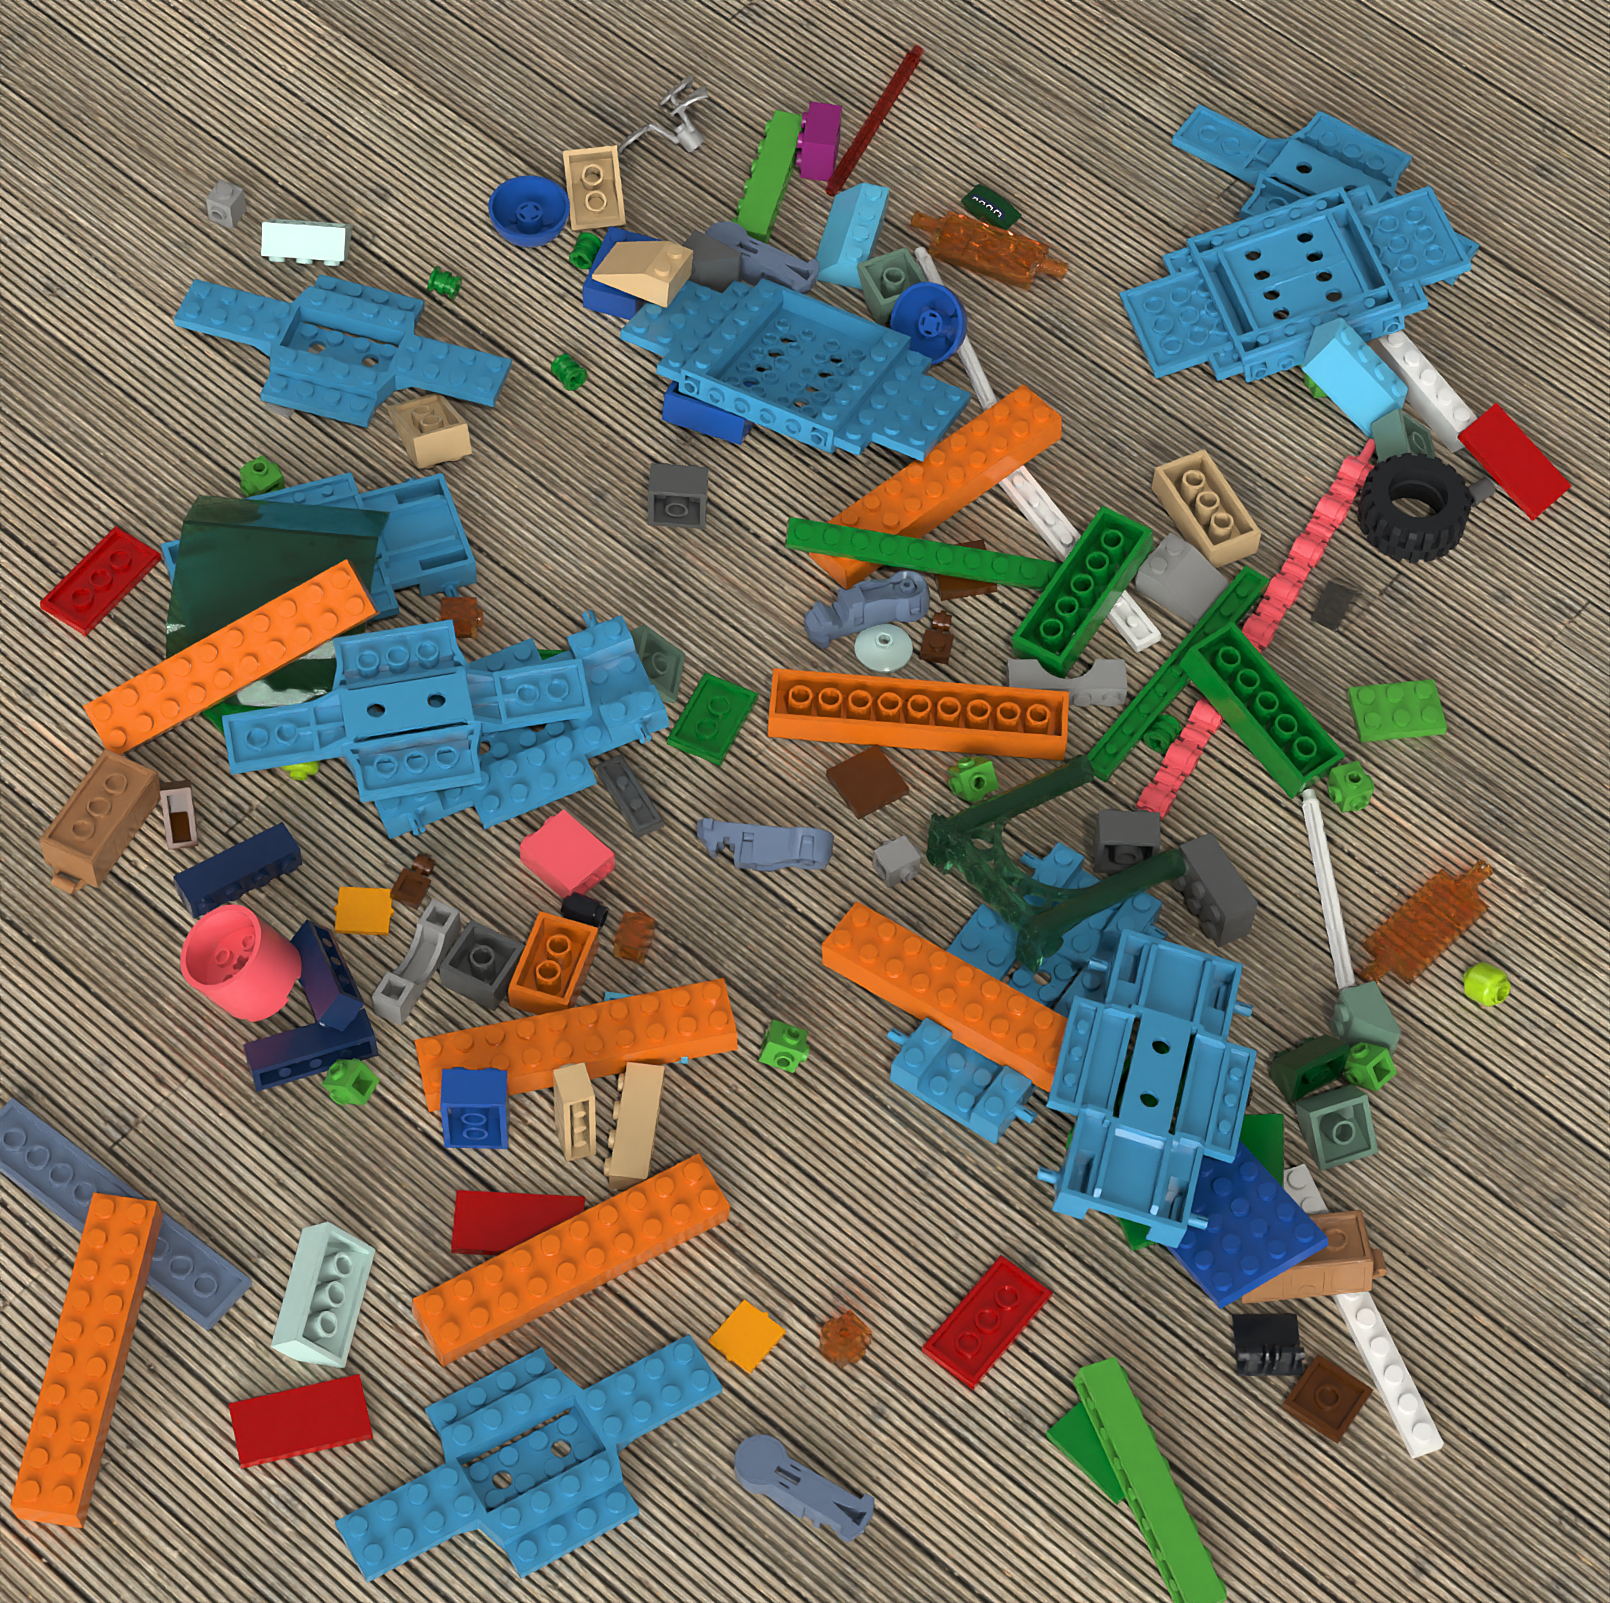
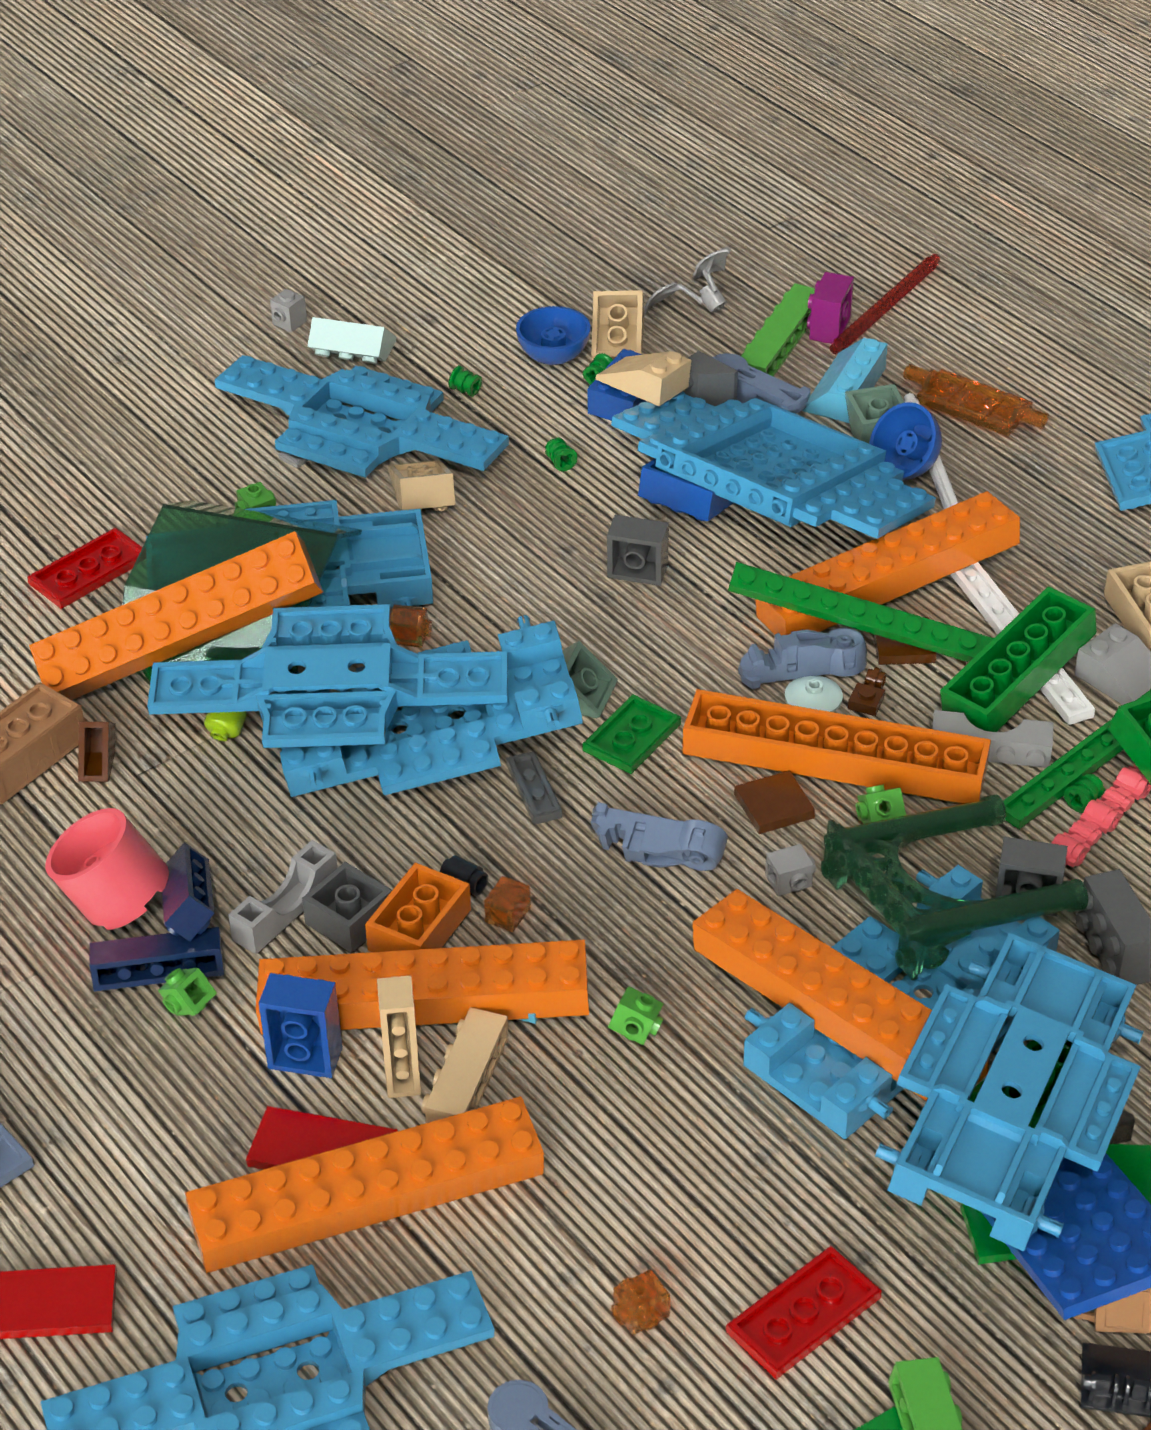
camera: 15 degrees right, 15 degrees down
(238, 870) = (143, 796): dark blue brick -> none
(323, 1296) = (100, 1185): light aqua slope -> none
(363, 911) = (248, 853): light orange piece -> none
(412, 886) = (299, 833): reddish brown plate -> none
(566, 856) = (458, 826): coral brick -> none
(747, 1336) = (537, 1289): light orange piece -> none
(991, 206) = (983, 371): dark green slope -> none

